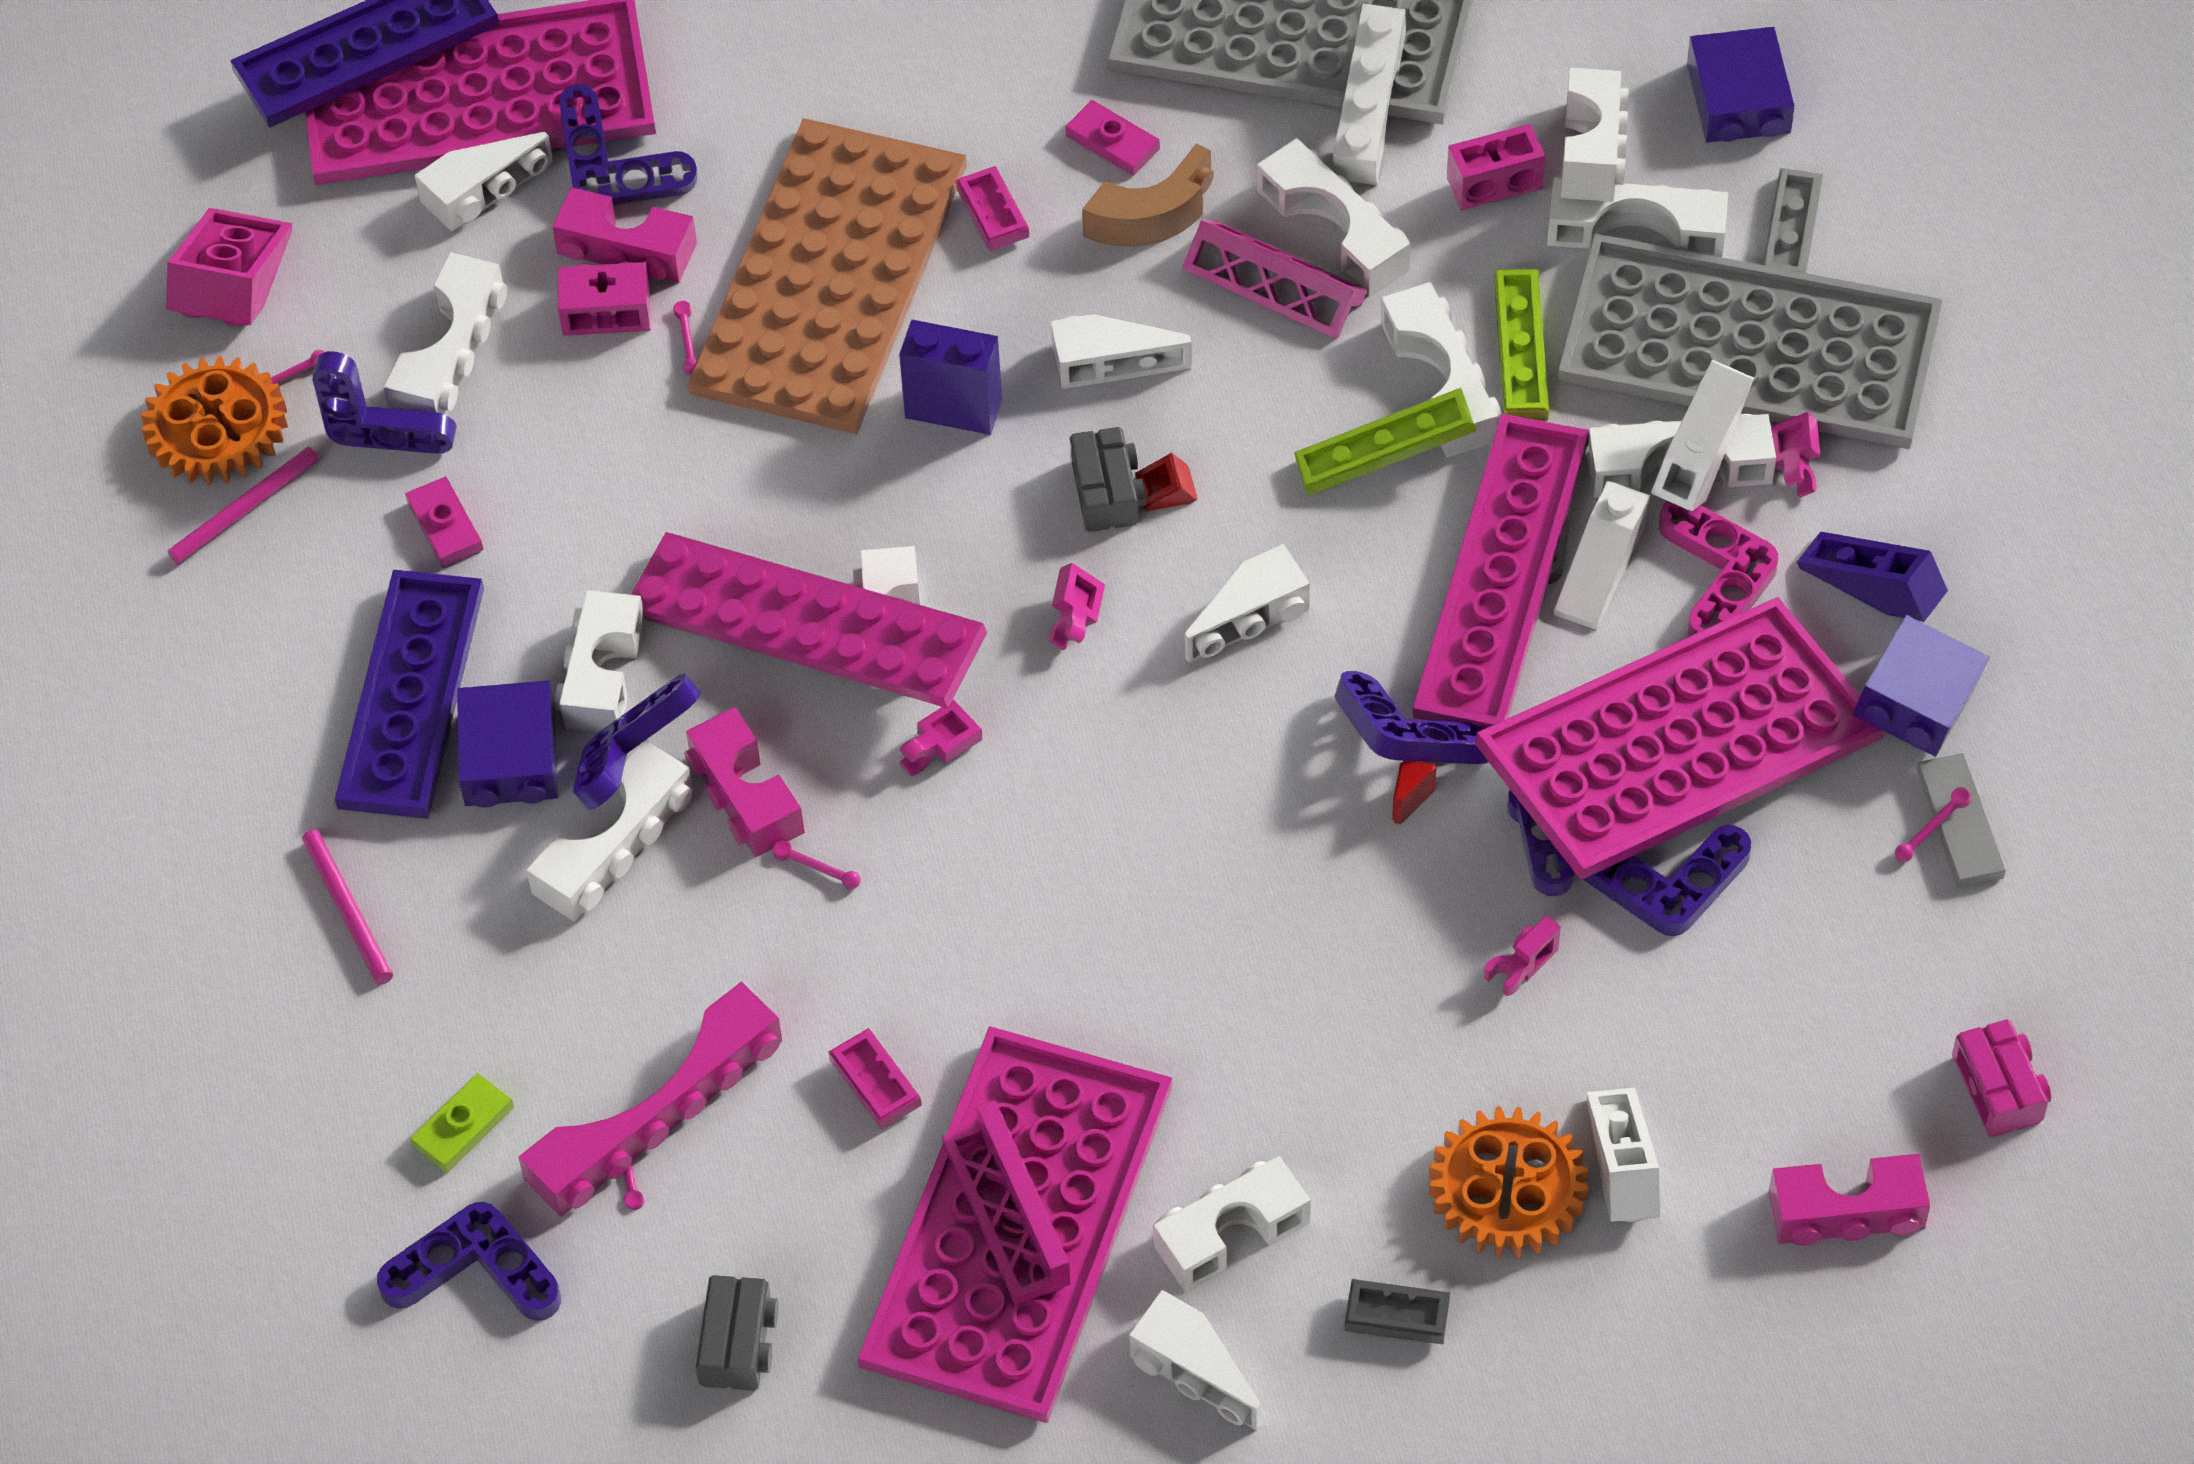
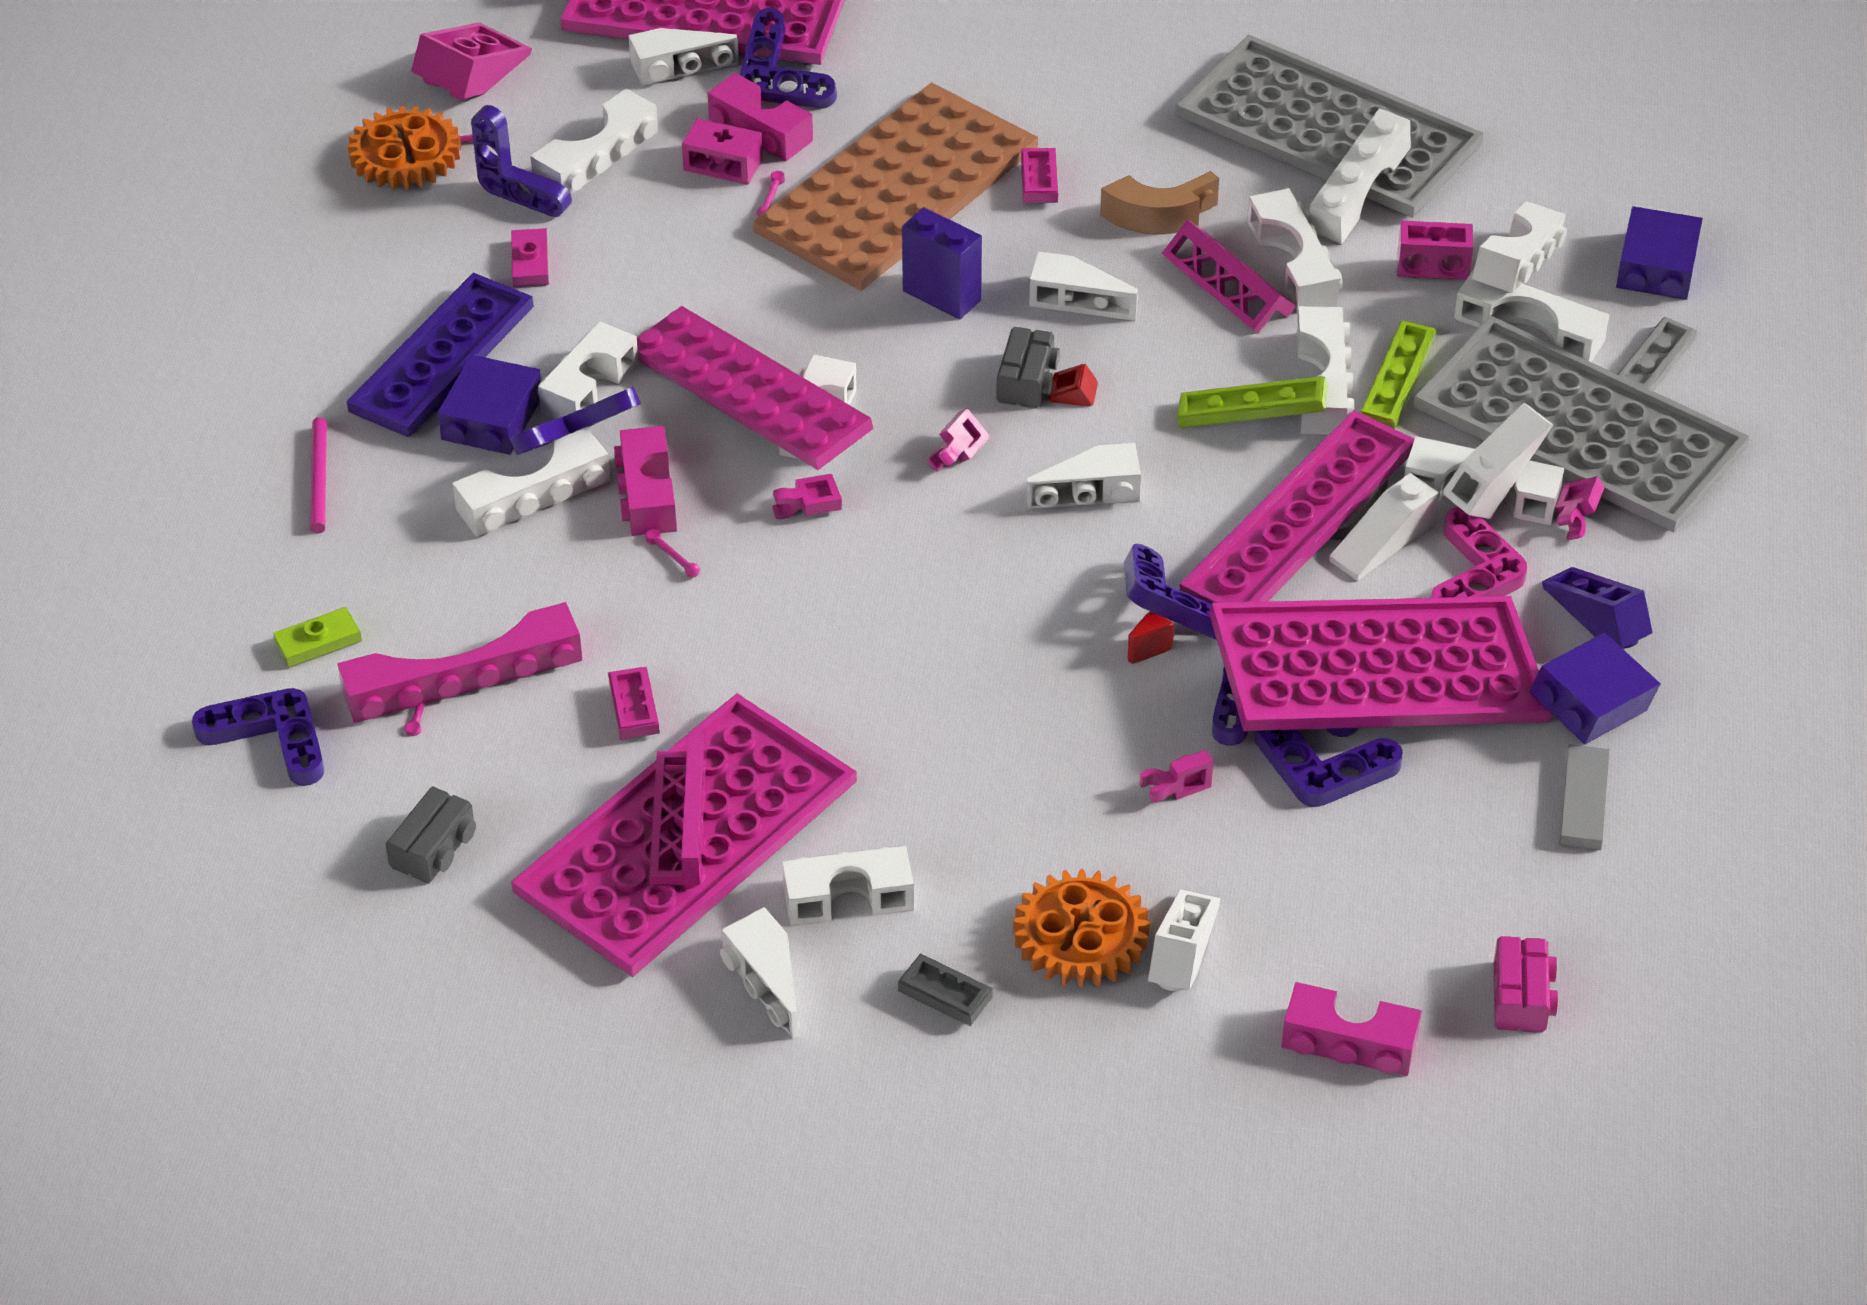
camera: 20 degrees right, 10 degrees down
(243, 505) = (395, 207): dark pink bar -> none
(1112, 137) = (1155, 157): dark pink plate -> none
(1959, 799) = (1587, 776): dark pink hinge -> none

